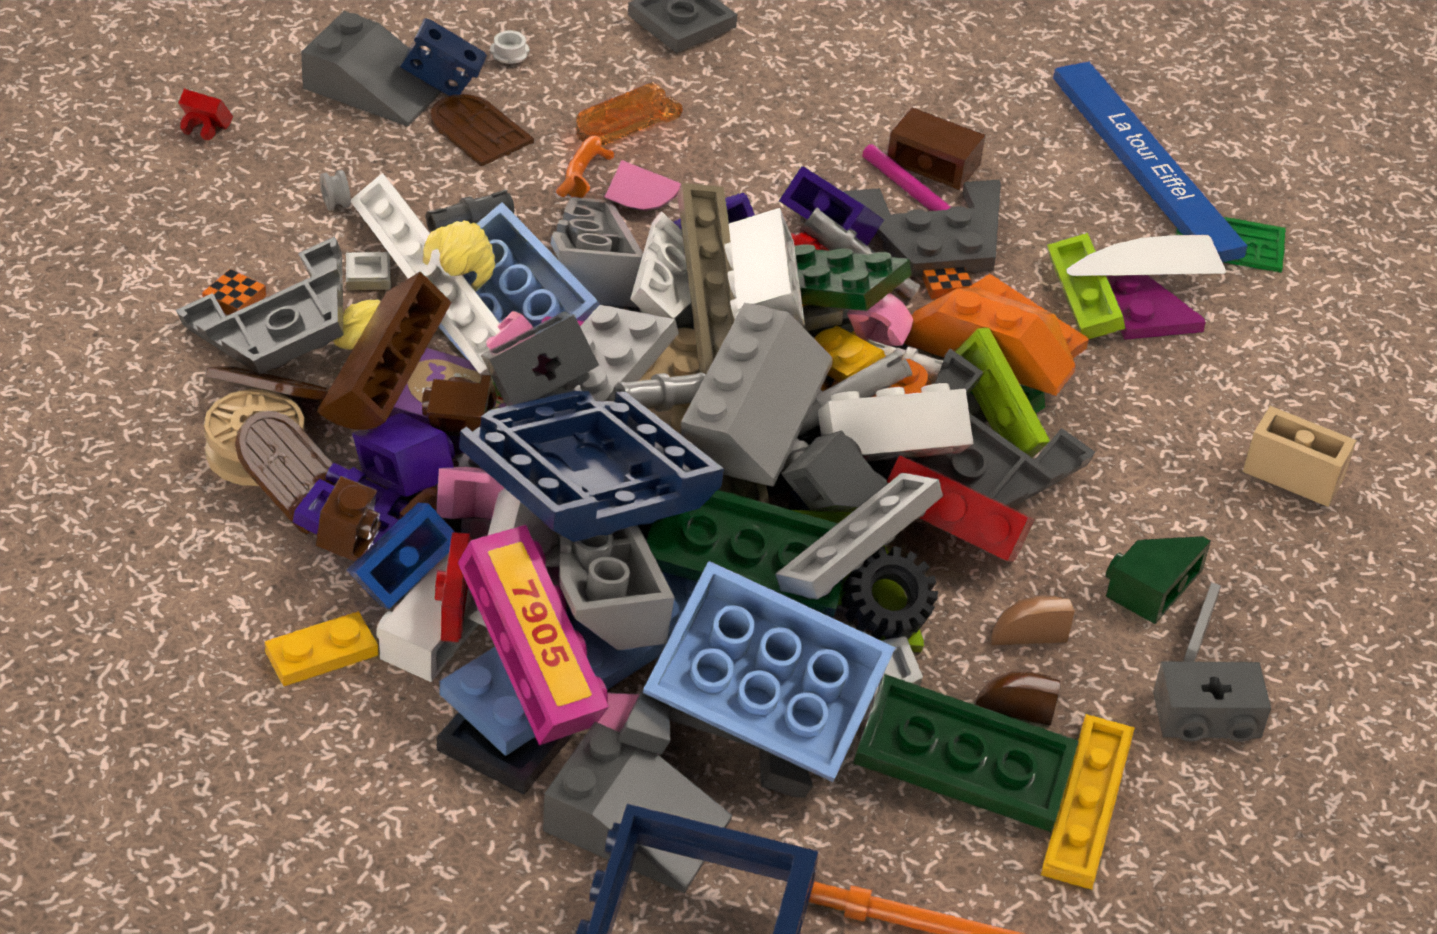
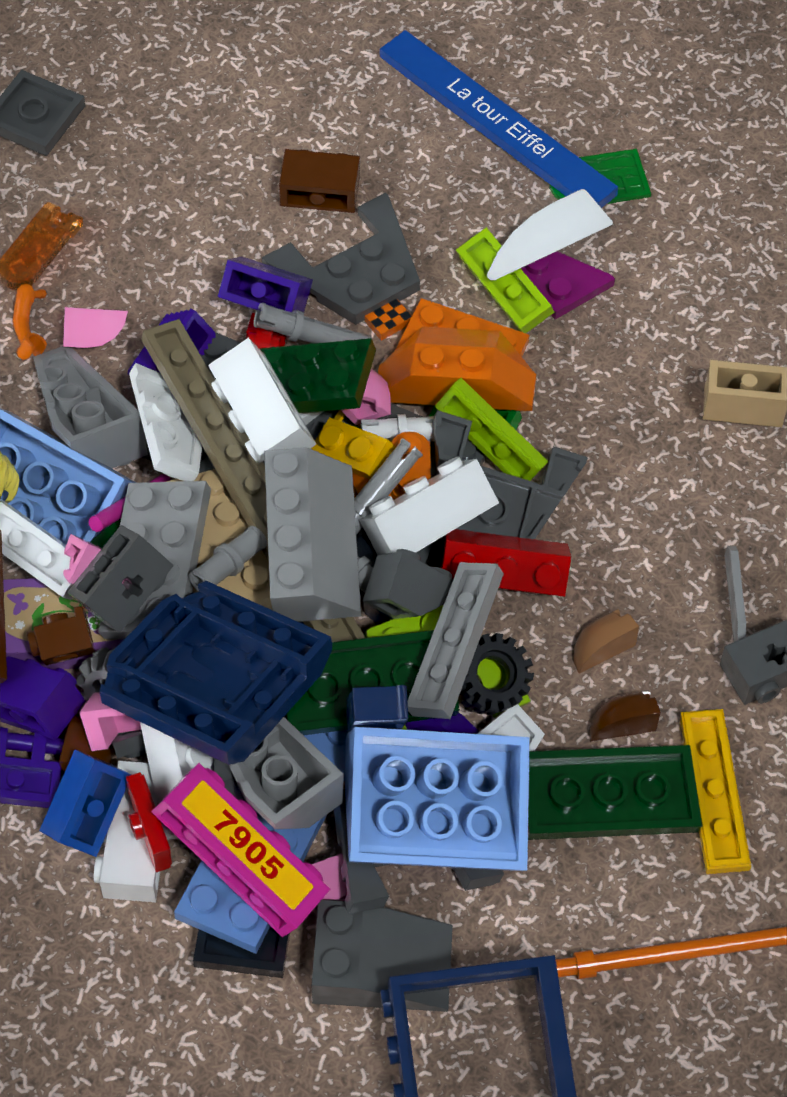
camera: 20 degrees left, 15 degrees up
(321, 648) = (52, 911): yellow plate -> none
(348, 520) = (24, 789): reddish brown brick -> none
(743, 548) = (377, 707): none -> dark blue piece
(904, 179) = (307, 222): dark pink bar -> none
(1155, 573) = (679, 556): dark green slope -> none

